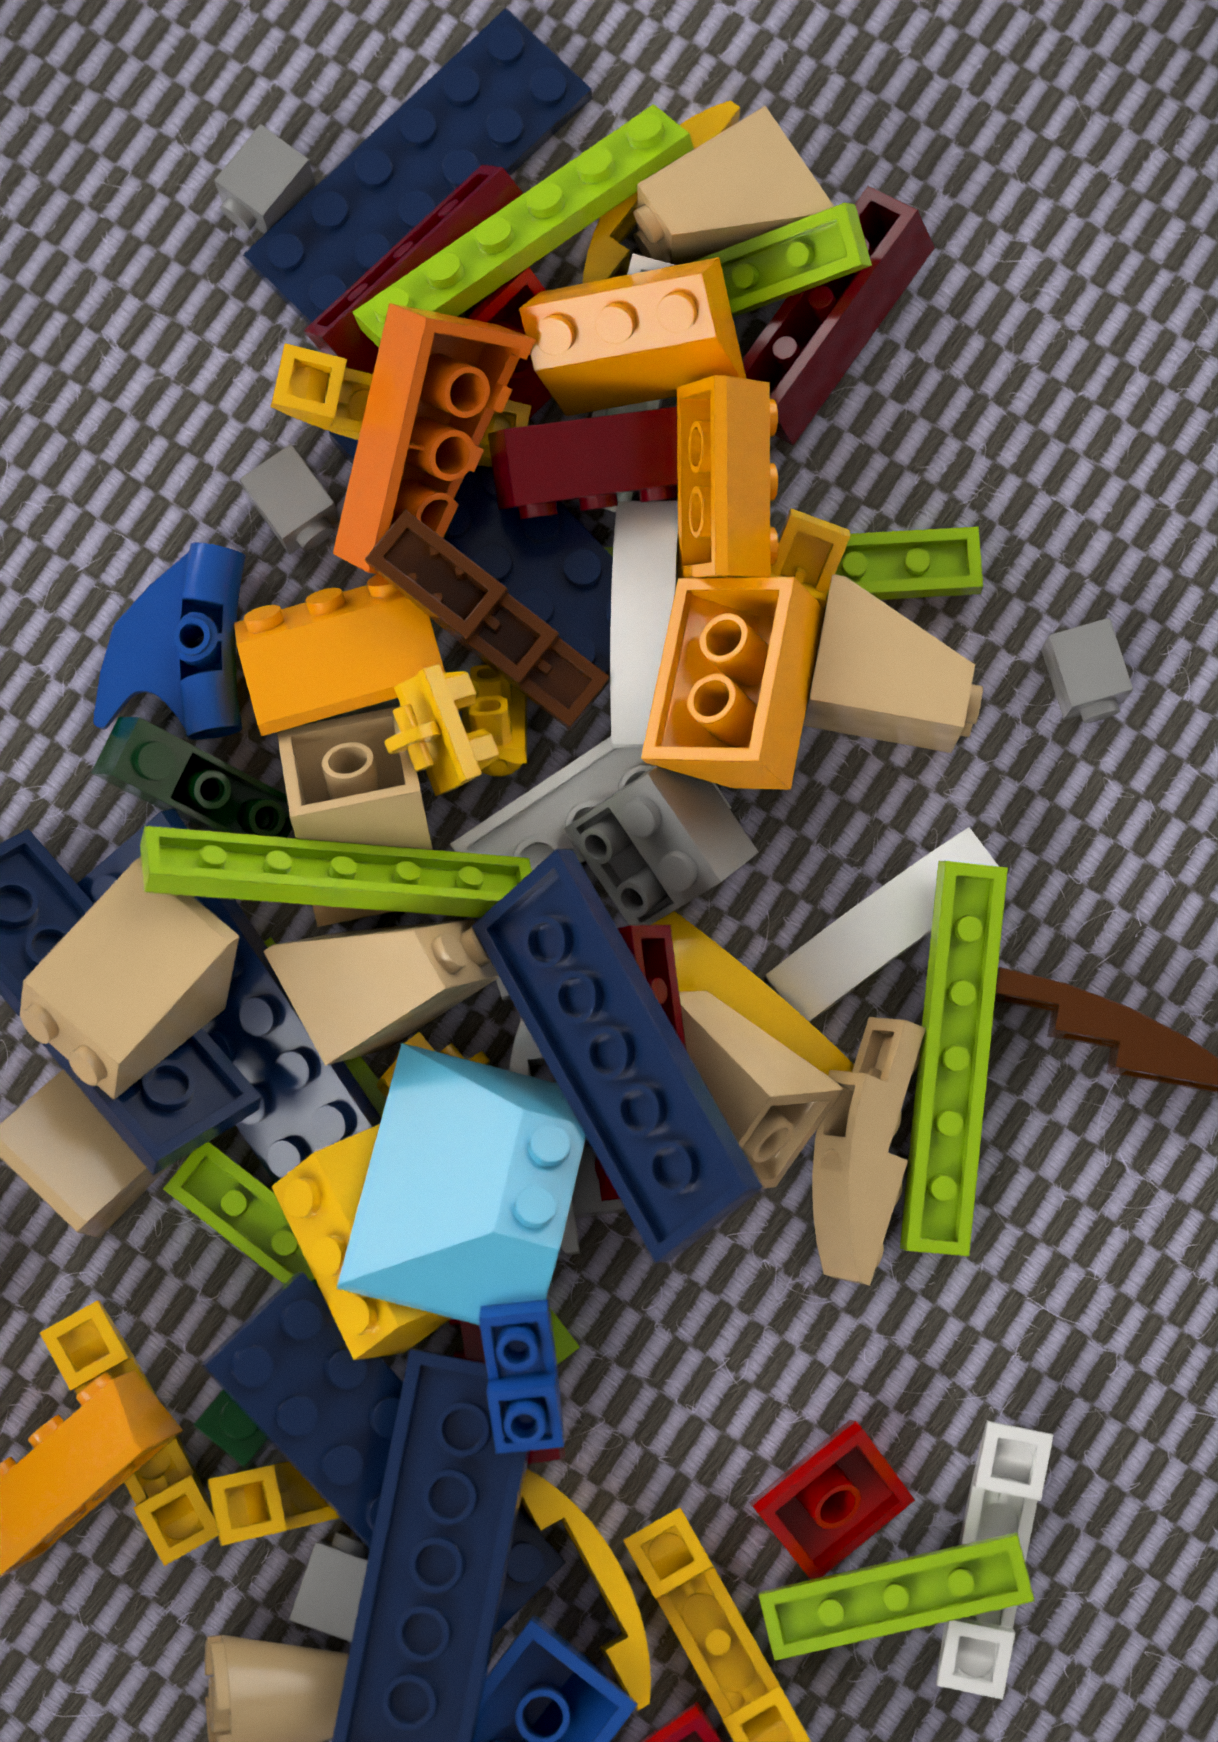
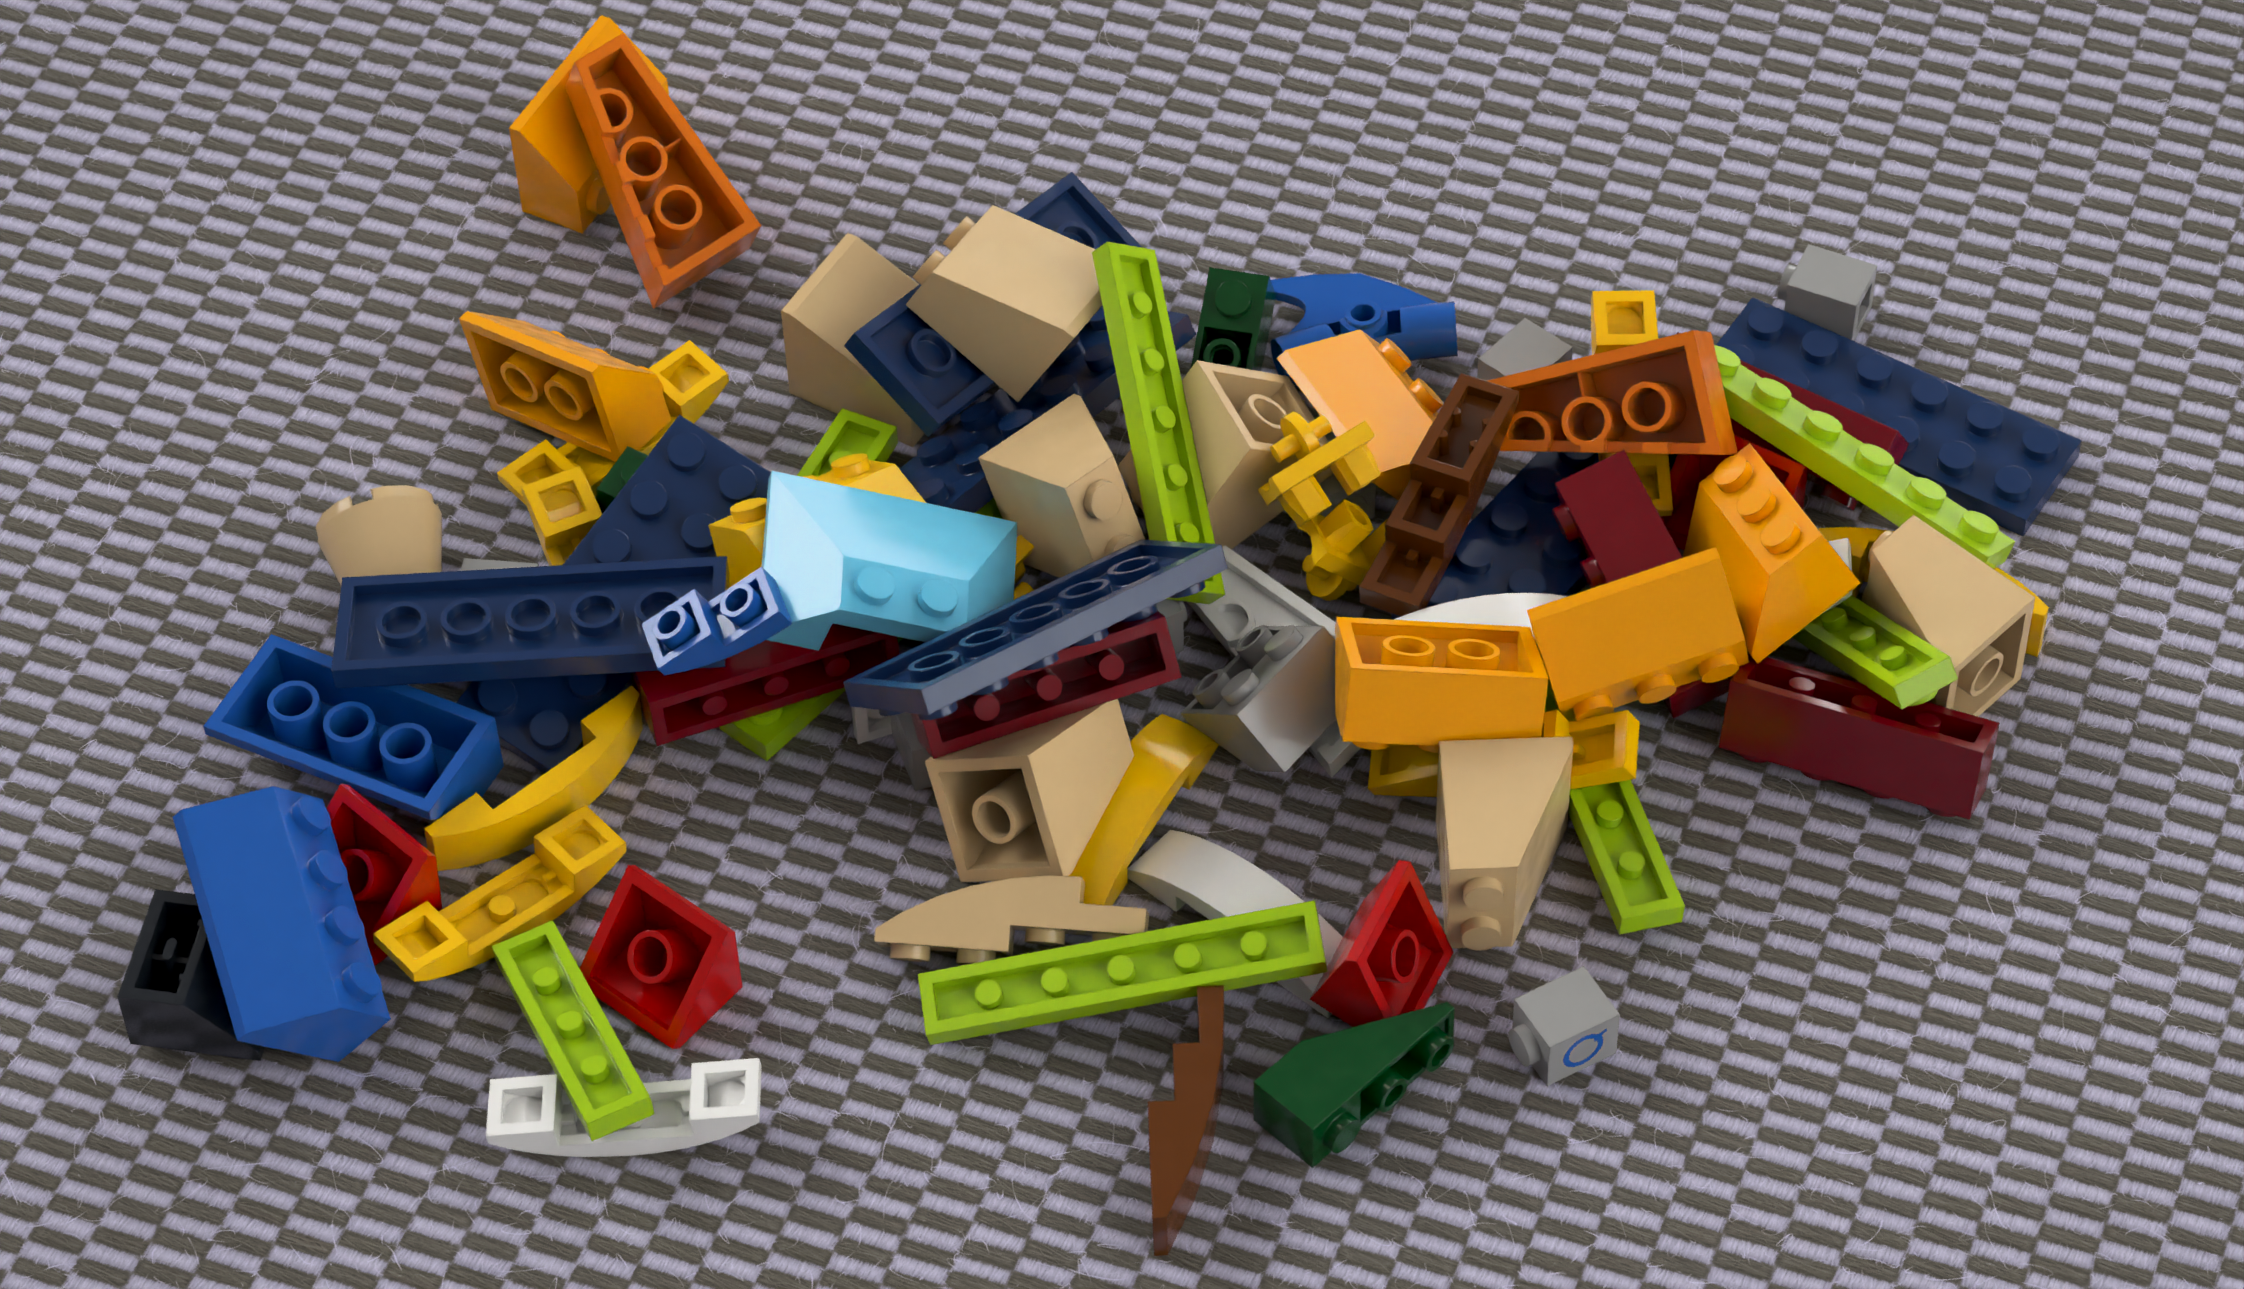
camera: 75 degrees right, 30 degrees down
(980, 815) = (1387, 954): none -> red slope
(1106, 888) = (1341, 1079): none -> dark green slope

